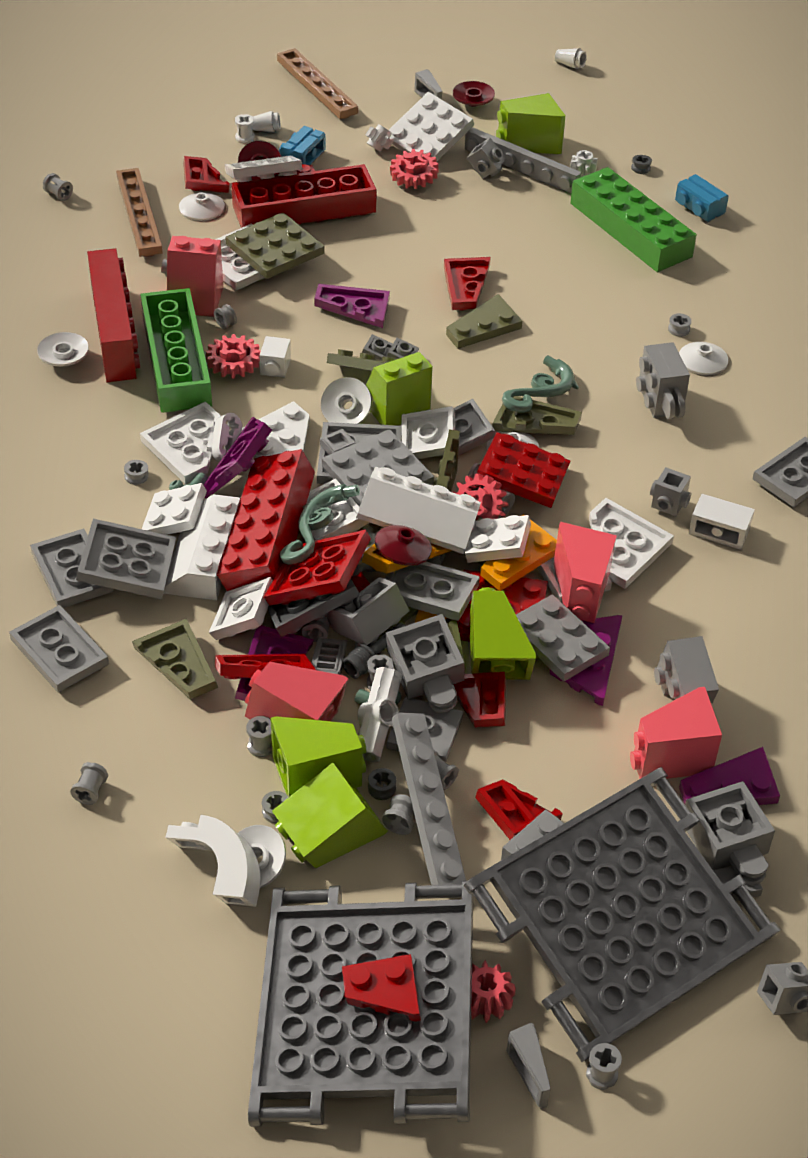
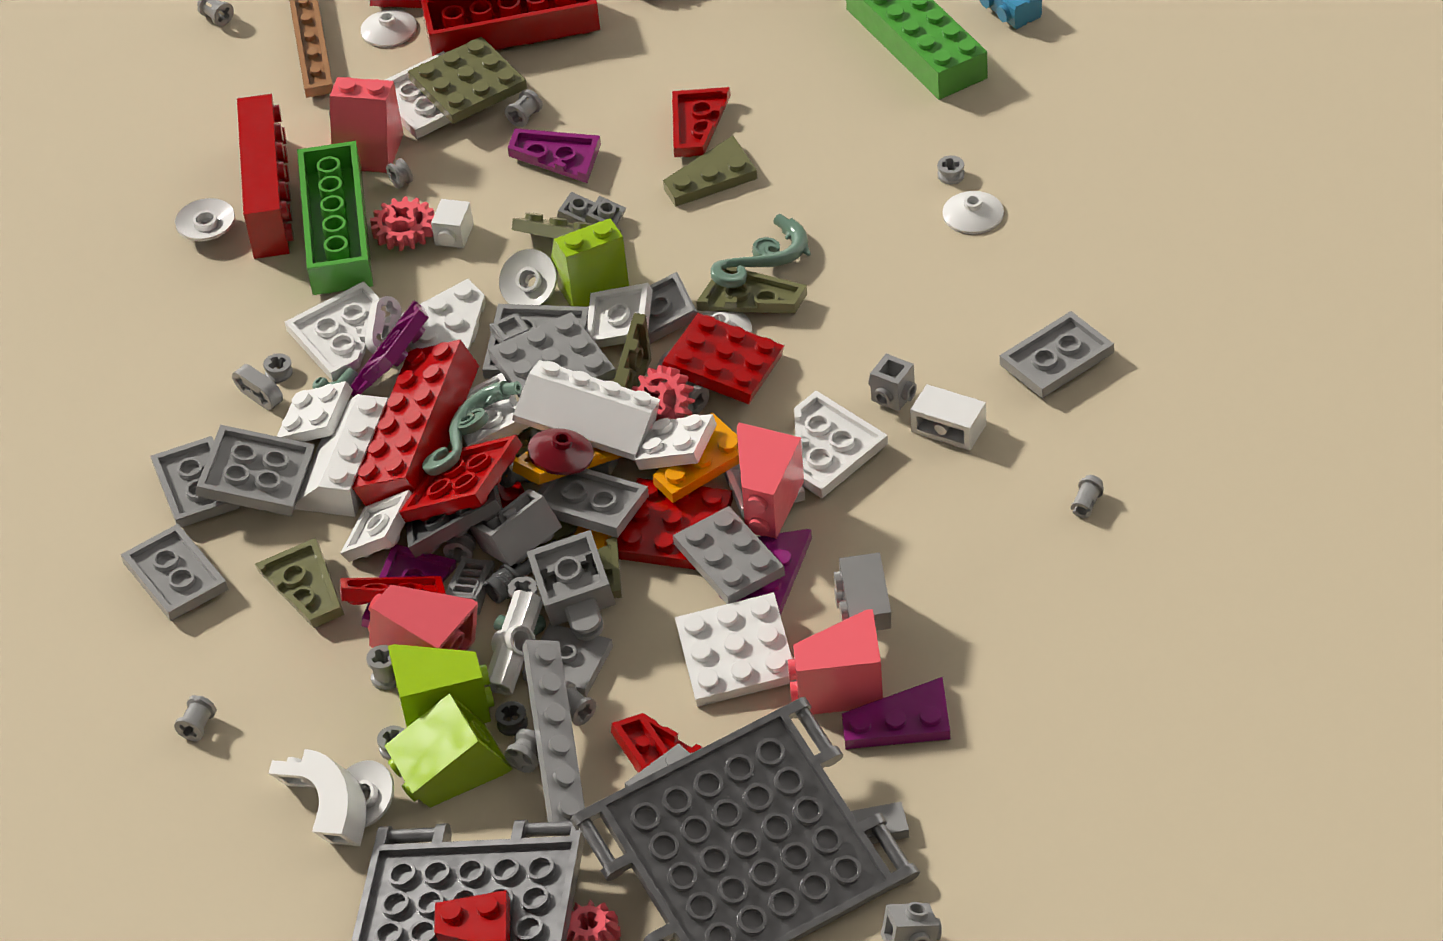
camera: 10 degrees right, 0 degrees up
(120, 487) = (257, 386): none -> light grey beam
(322, 268) = (523, 108): none -> light grey bush
(483, 698) = (637, 623): red wing -> none
(498, 638) = (651, 558): lime slope -> none
(576, 721) = (735, 649): none -> white plate
(663, 380) = (908, 244): light grey brick -> none
(732, 831) = (882, 767): light grey brick -> none

